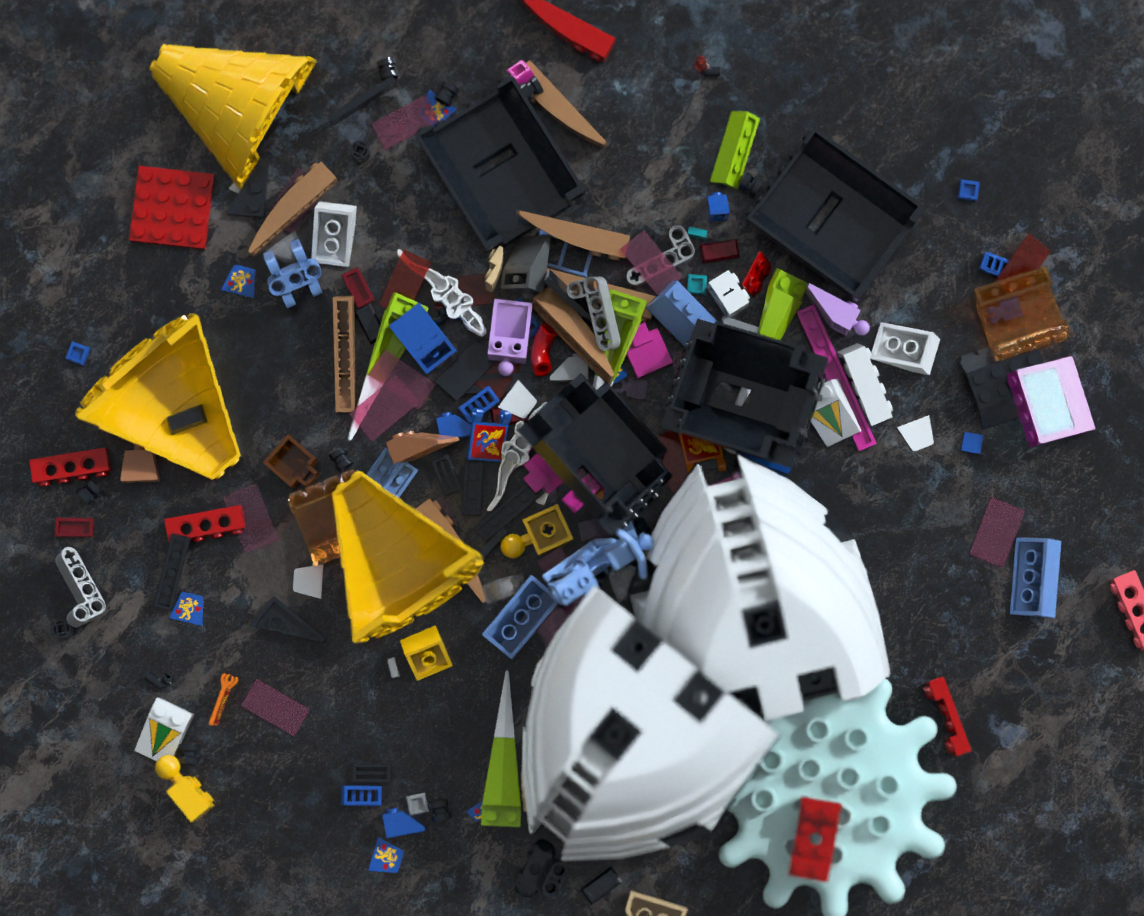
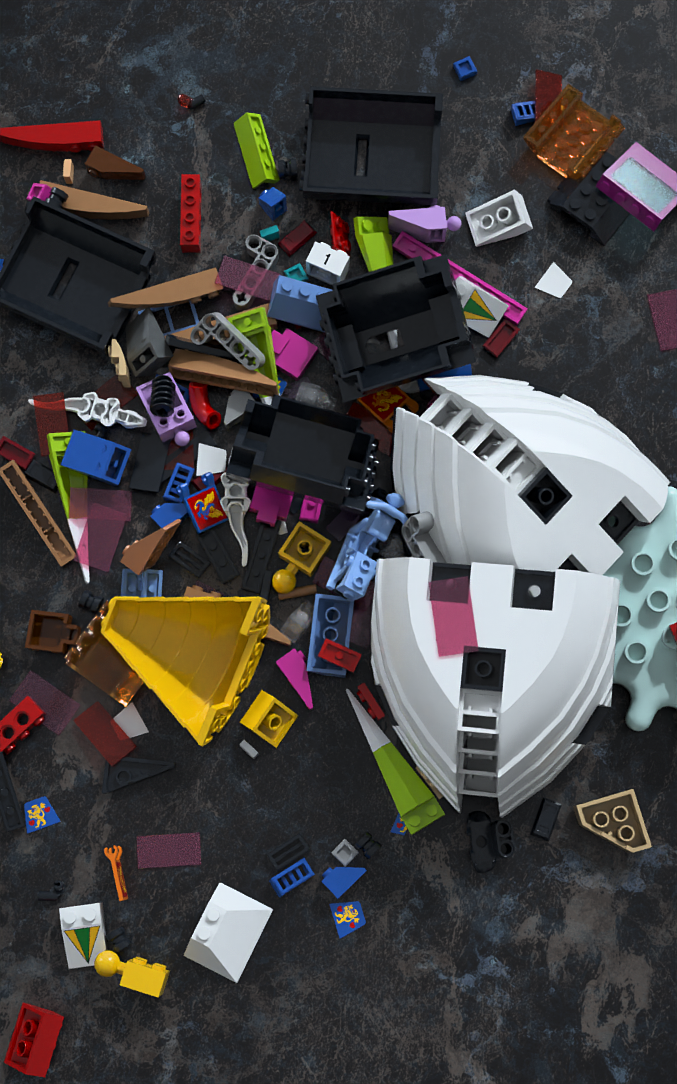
camera: 35 degrees left, 5 degrees down
(71, 789) = (33, 1040): none -> red slope
(281, 805) = (228, 932): none -> white slope
(283, 577) = (104, 733): none -> clear red piece
(473, 626) = (295, 671): none -> dark pink slope
(511, 323) = (162, 396): none -> black piece
(516, 640) = (339, 655): none -> red plate
(518, 702) = (374, 709): none -> red plate
(521, 562) = (299, 591): none -> medium nougat piece
(559, 65) = (68, 171): none -> light nougat tile
(598, 84) = (109, 166): none -> reddish brown slope
(619, 676) = (453, 616): none -> clear pink window
(641, 171) = (190, 213): none -> red brick
(641, 405) = (316, 396): none -> clear slope
(641, 595) = (419, 540): none -> light grey beam
(837, 454) = (501, 338): none -> dark red tile
(866, 383) = (487, 265): white wedge -> none
(972, 443) = (603, 261): blue tile -> none
(1008, 310) = (561, 137): plate -> none

